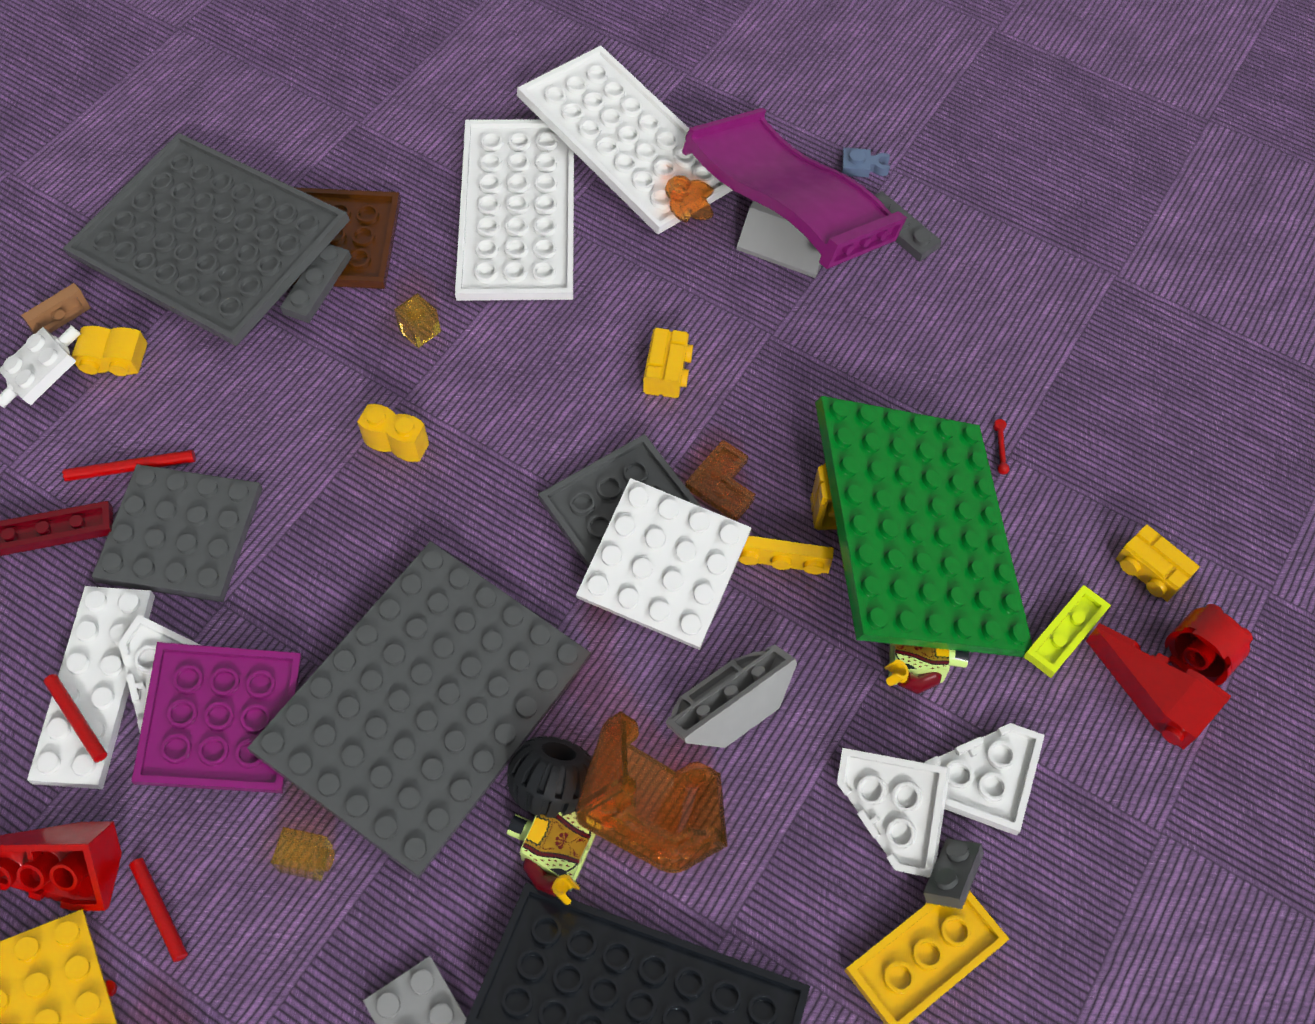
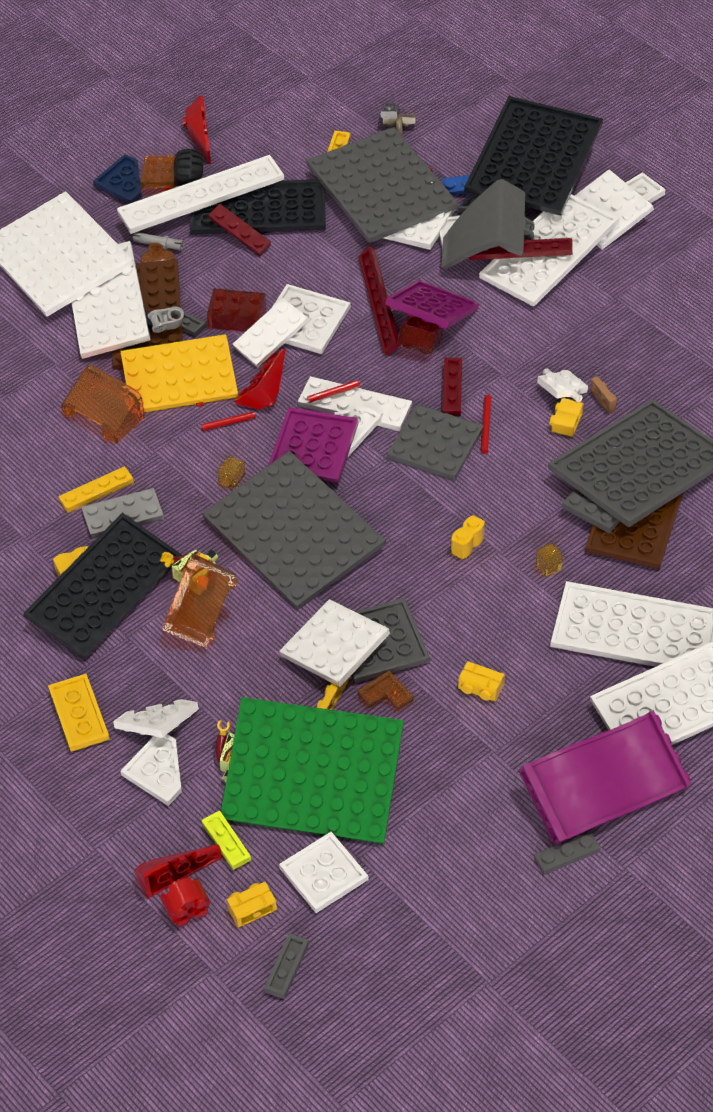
camera: 110 degrees right, 10 degrees down
(547, 775) = (237, 563): black wheel -> none
(689, 198) = (606, 717): clear orange plate -> none
(733, 698) = (241, 654): light grey wedge -> none
(860, 162) = (634, 845): sand blue plate -> none
(953, 873) = (111, 731): dark grey plate -> none
(999, 426) = (382, 859): red hinge -> none
(1059, 487) = (323, 872): none -> white plate
(1222, 495) = (286, 966): none -> dark grey plate

